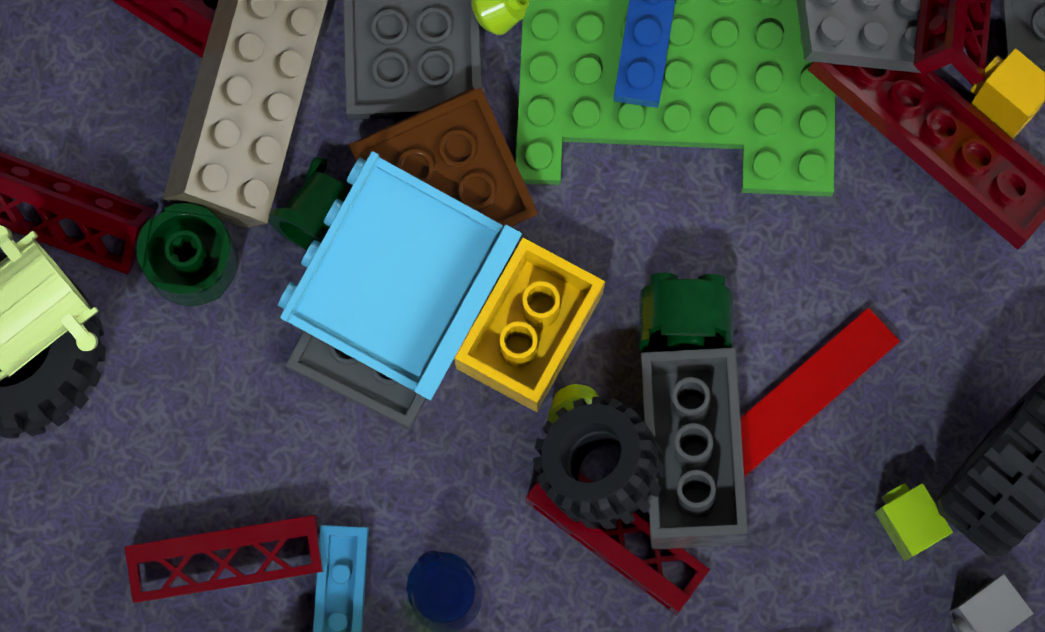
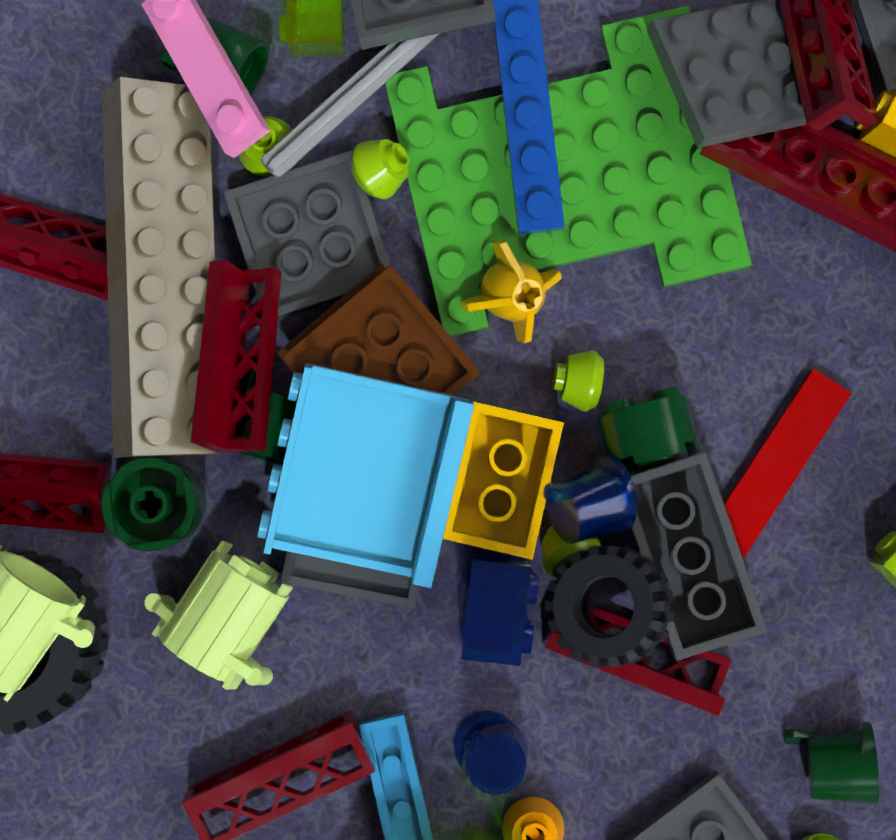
camera: 15 degrees left, 10 degrees up
(222, 377) = (222, 617): none -> yellowish green container
(298, 136) = (226, 360): none -> dark red fence
(487, 433) = (496, 609): none -> clear blue brick
(592, 151) = (513, 291): none -> yellow piece
(610, 364) = (593, 502): none -> clear blue hat
(634, 253) = (580, 379): none -> lime cone

